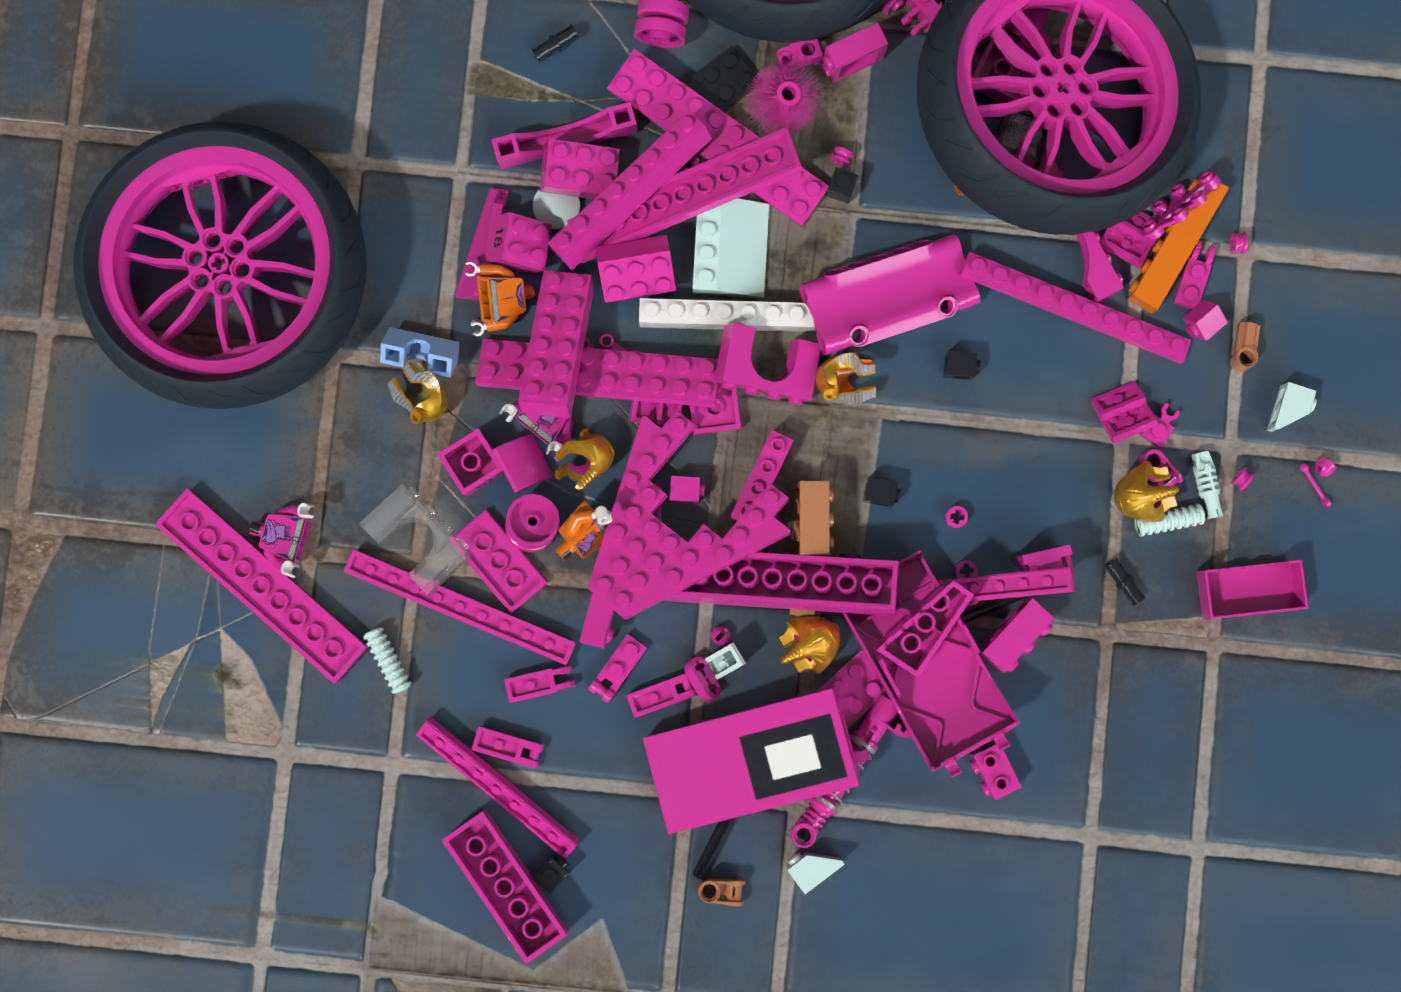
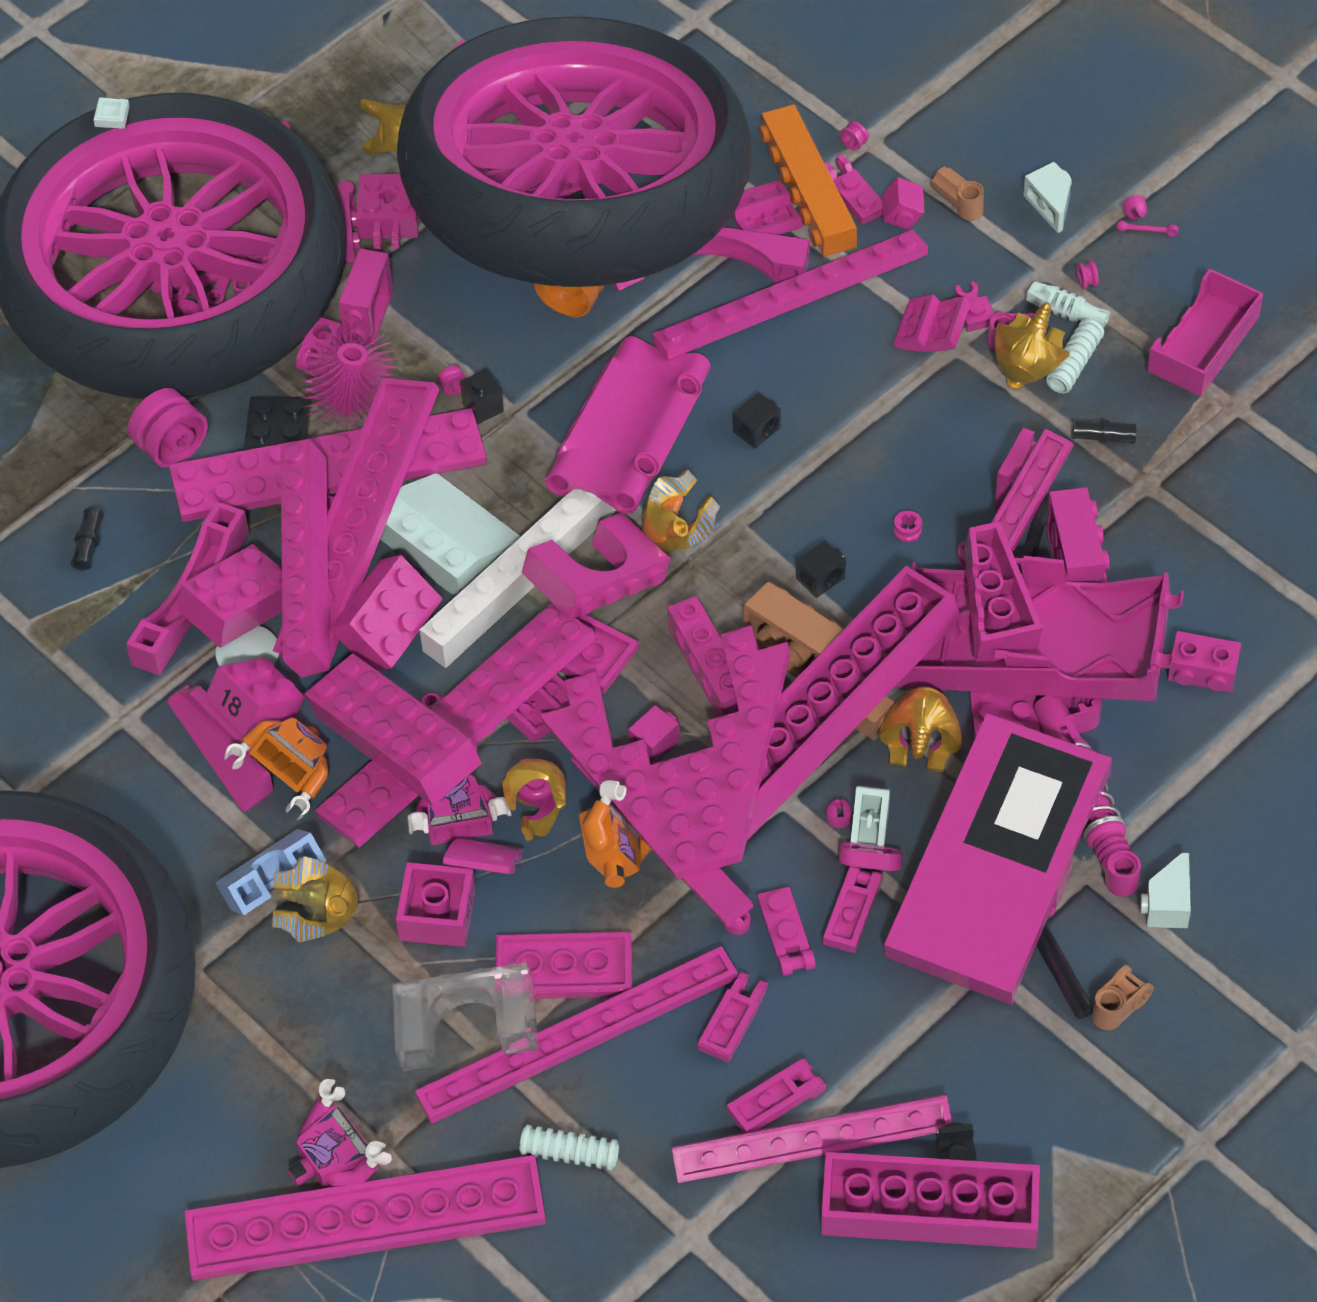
camera: 50 degrees left, 30 degrees down
(529, 537) = (554, 892): dark pink wheel -> none
(1177, 209) = (779, 142): dark pink plant -> none

